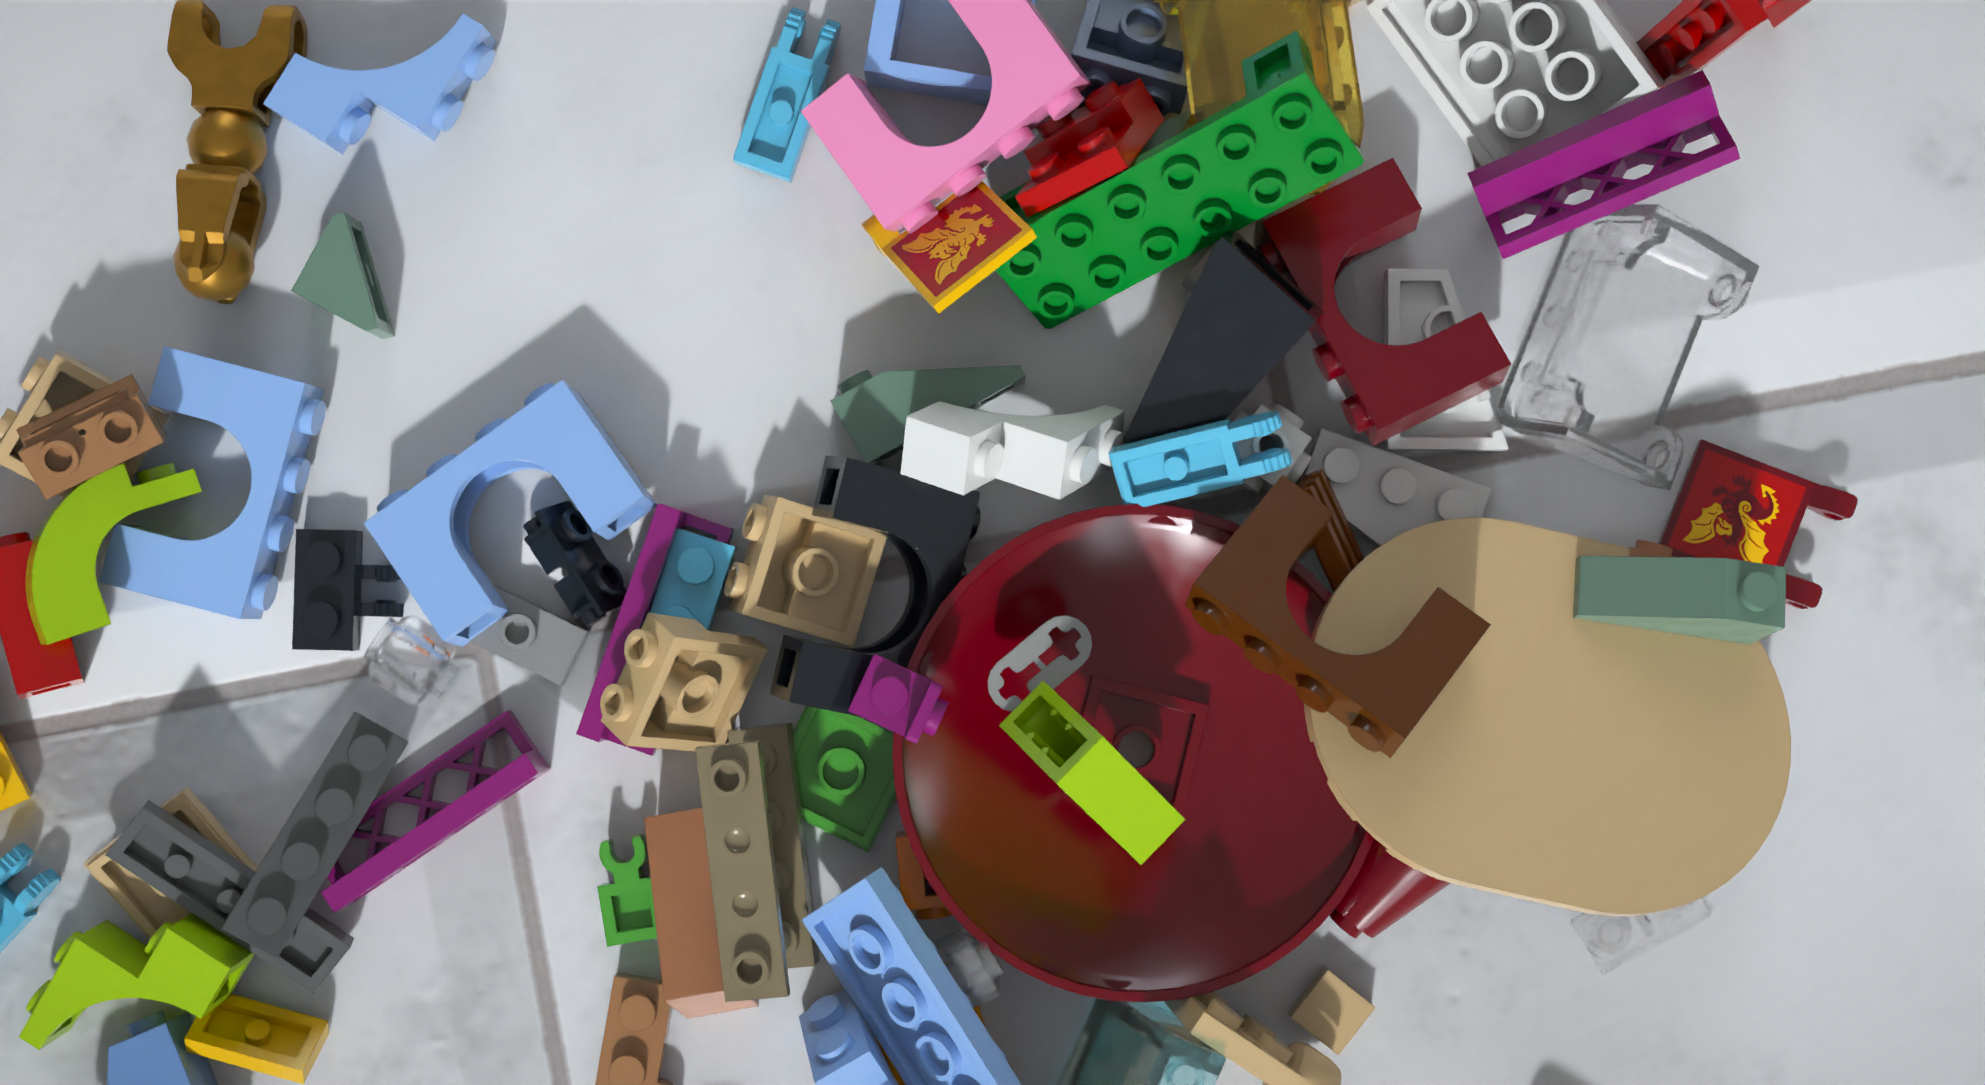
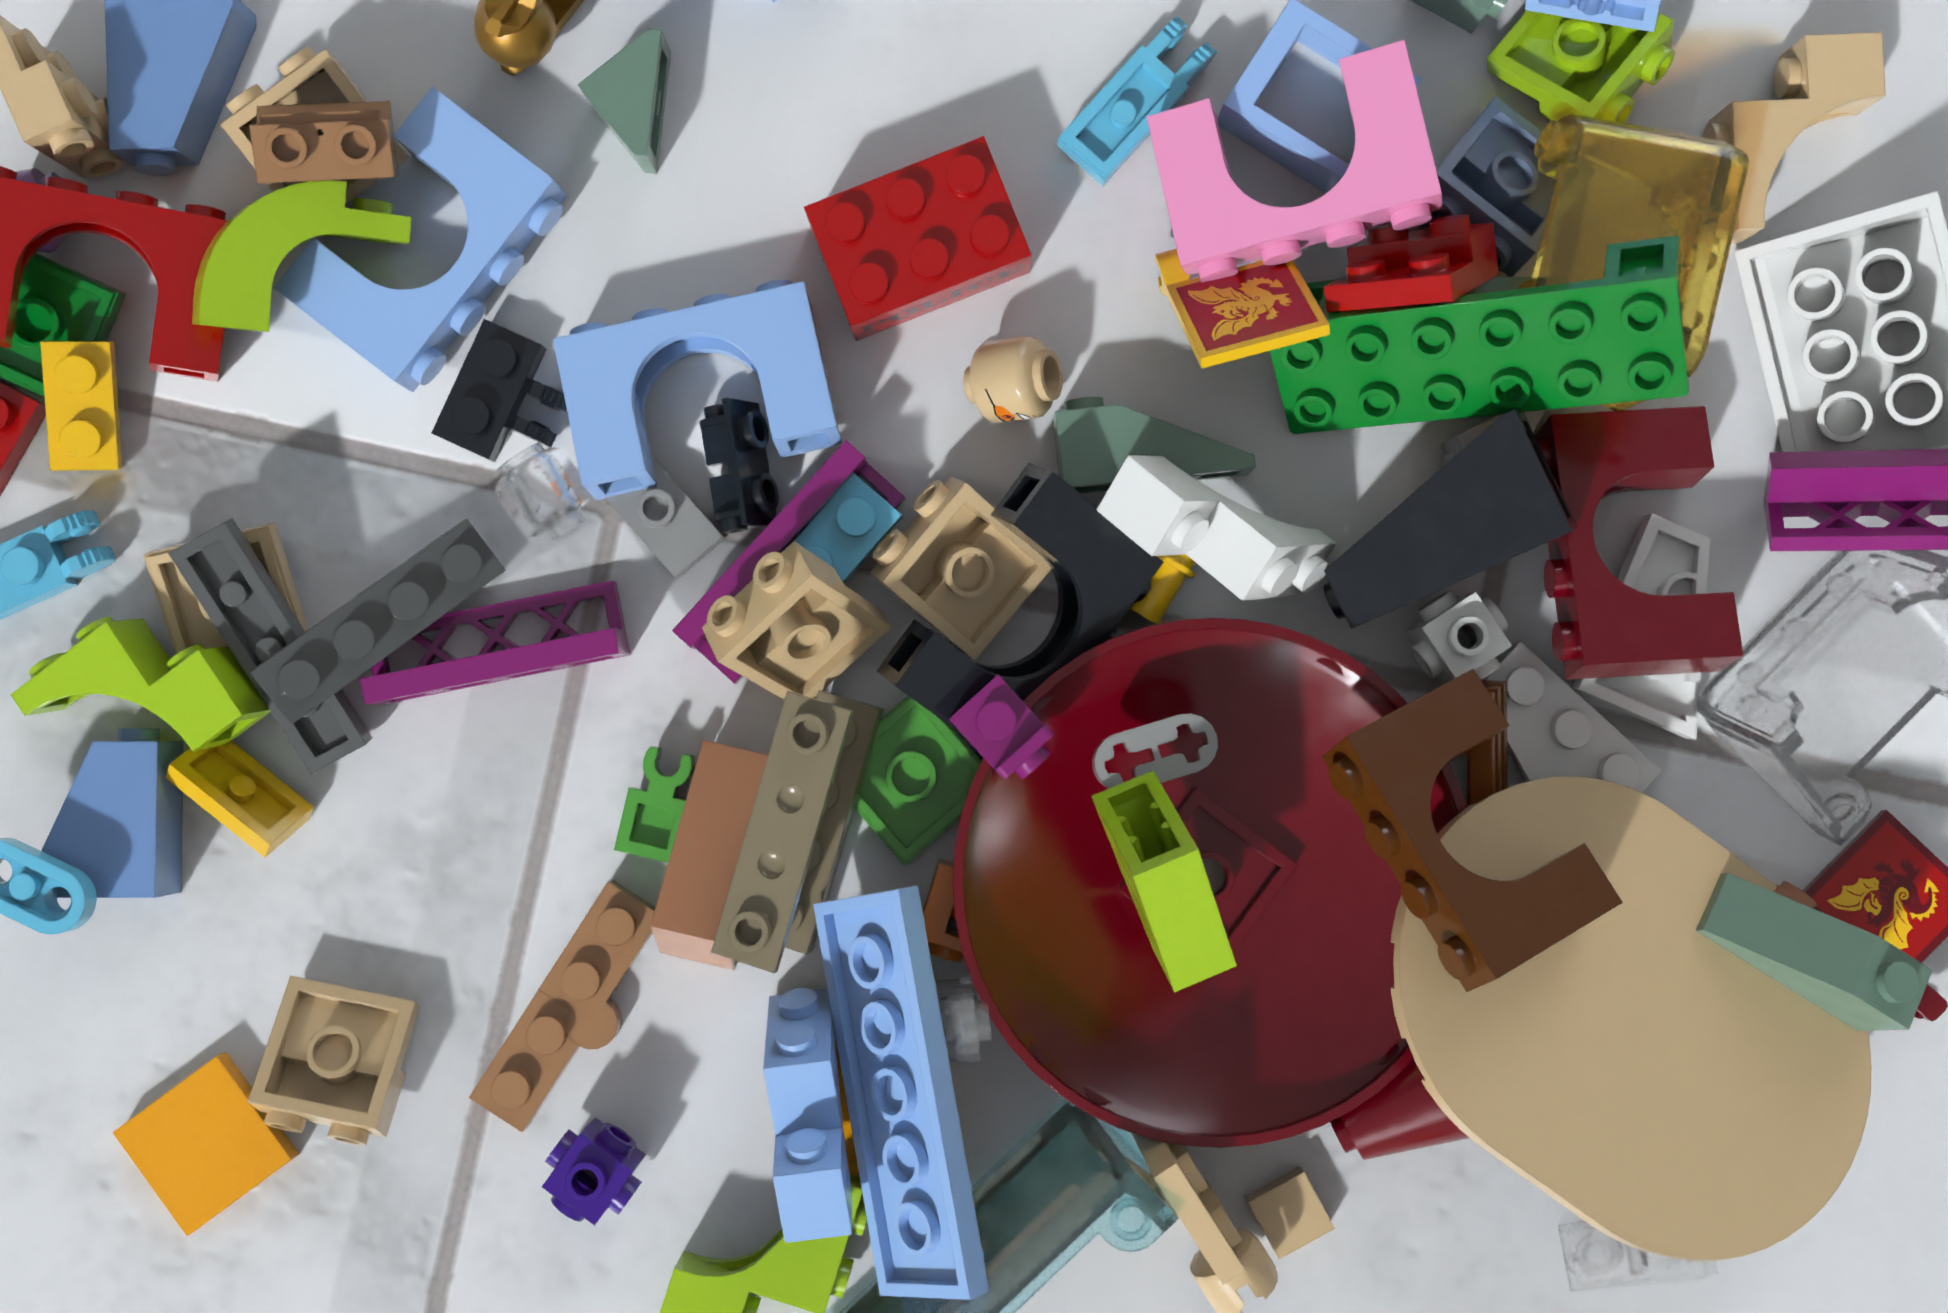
camera: 25 degrees right, 0 degrees up
(647, 299) = (919, 238): none -> red brick
(783, 386) = (1013, 379): none -> tan head
(991, 510) = (1164, 586): none -> yellow pin
(1195, 460) = (1390, 619): medium azure hinge -> none

